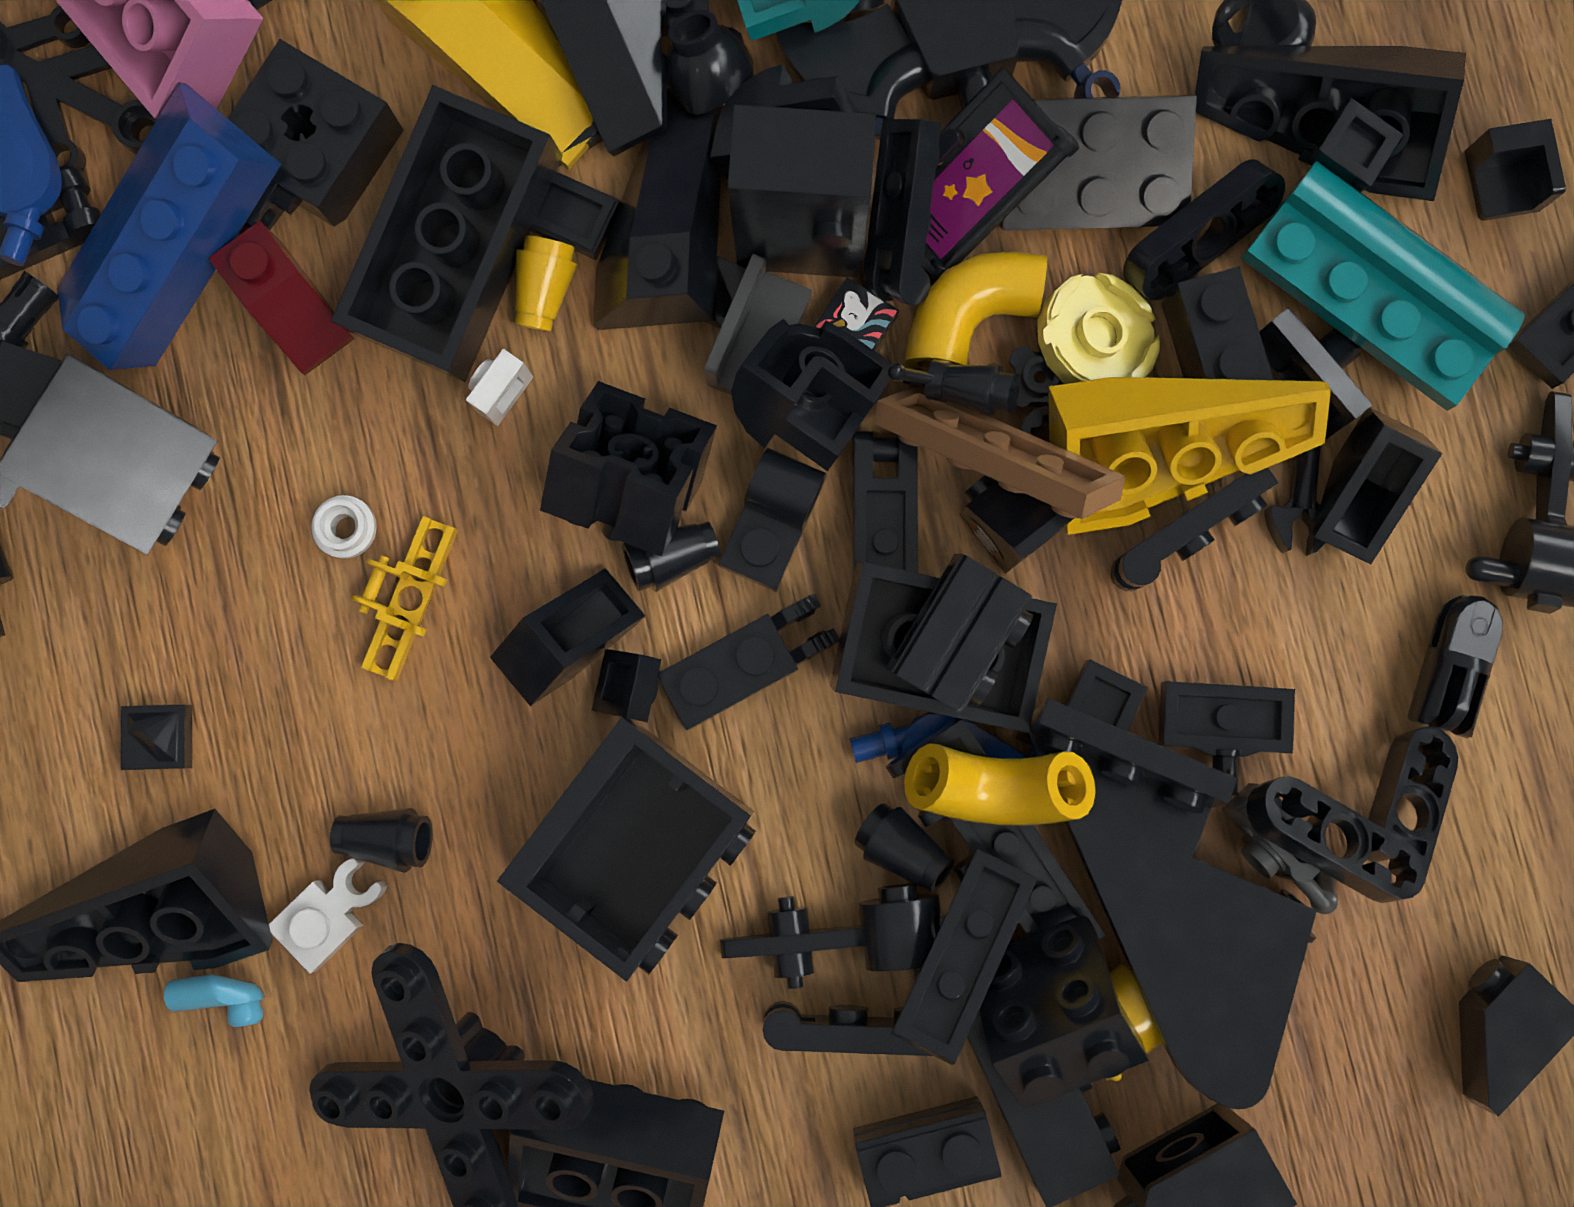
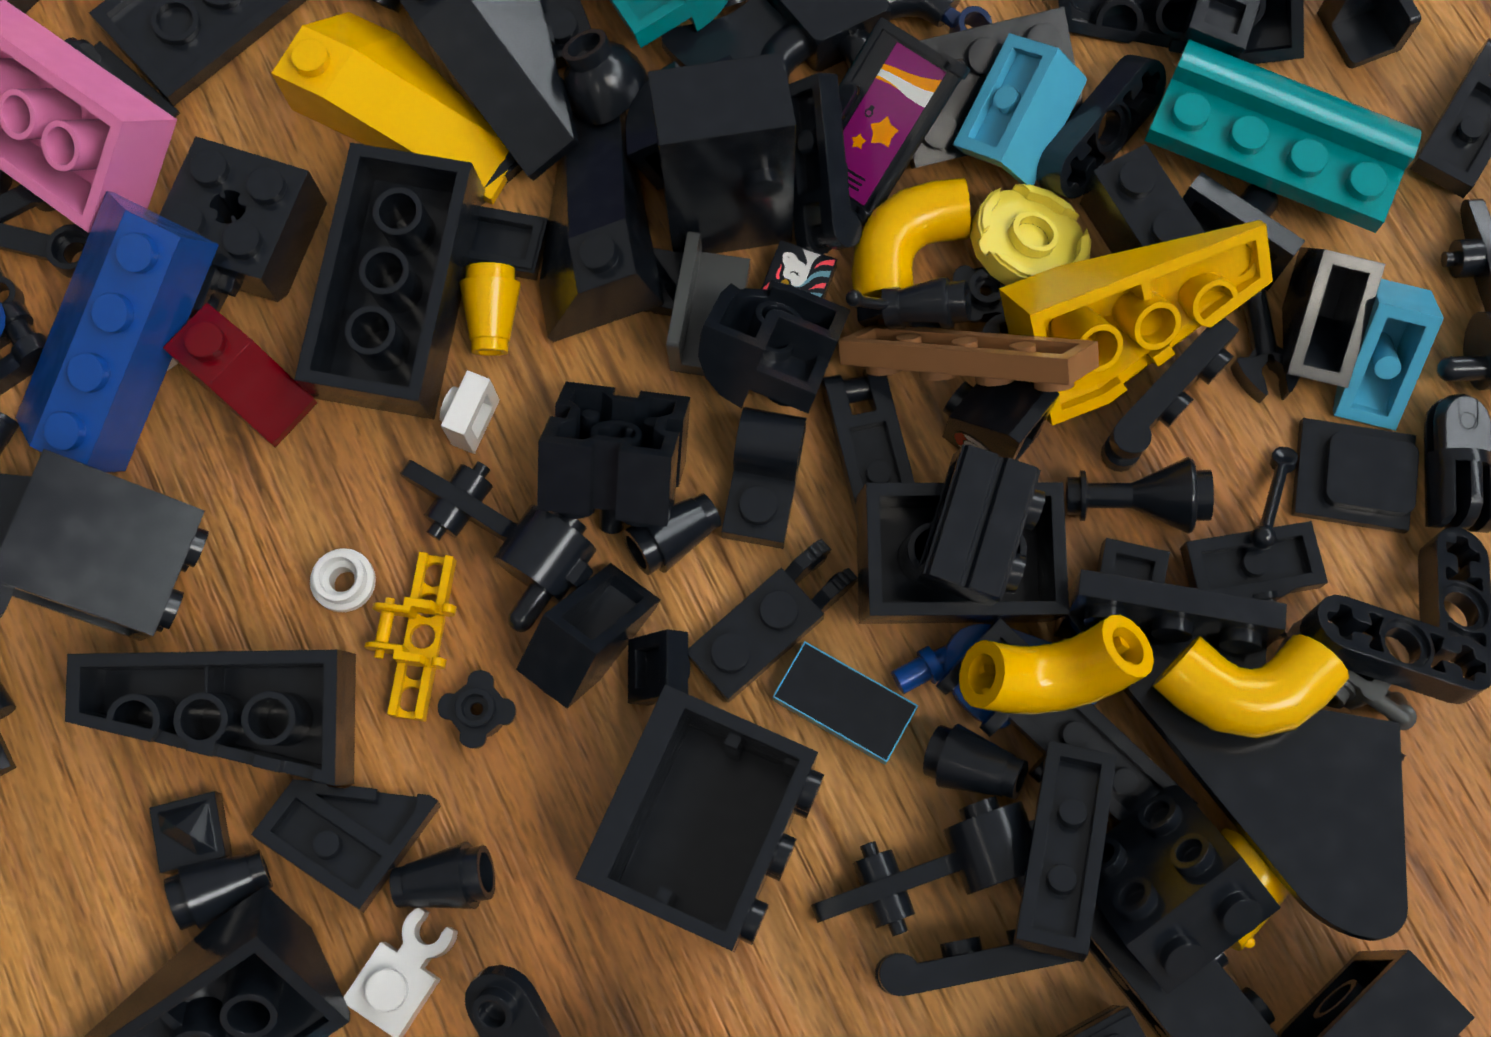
camera: 15 degrees left, 10 degrees down
(169, 796) = (213, 887): none -> black cone
(232, 635) = (244, 706): none -> black wedge
(298, 774) = (345, 834): none -> black wing
(464, 687) = (495, 713): none -> black plate
(534, 543) = (539, 550): none -> black piece
(797, 758) = (844, 702): none -> black tile
(1122, 196) = (1021, 107): none -> medium azure panel
(1165, 631) = (1172, 495): none -> black piece
(1178, 860) = (1256, 700): none -> yellow cylinder
(1287, 620) = (1283, 462): none -> black hinge
(1354, 649) = (1355, 475): none -> black piece
(1426, 538) = (1390, 355): none -> medium azure slope

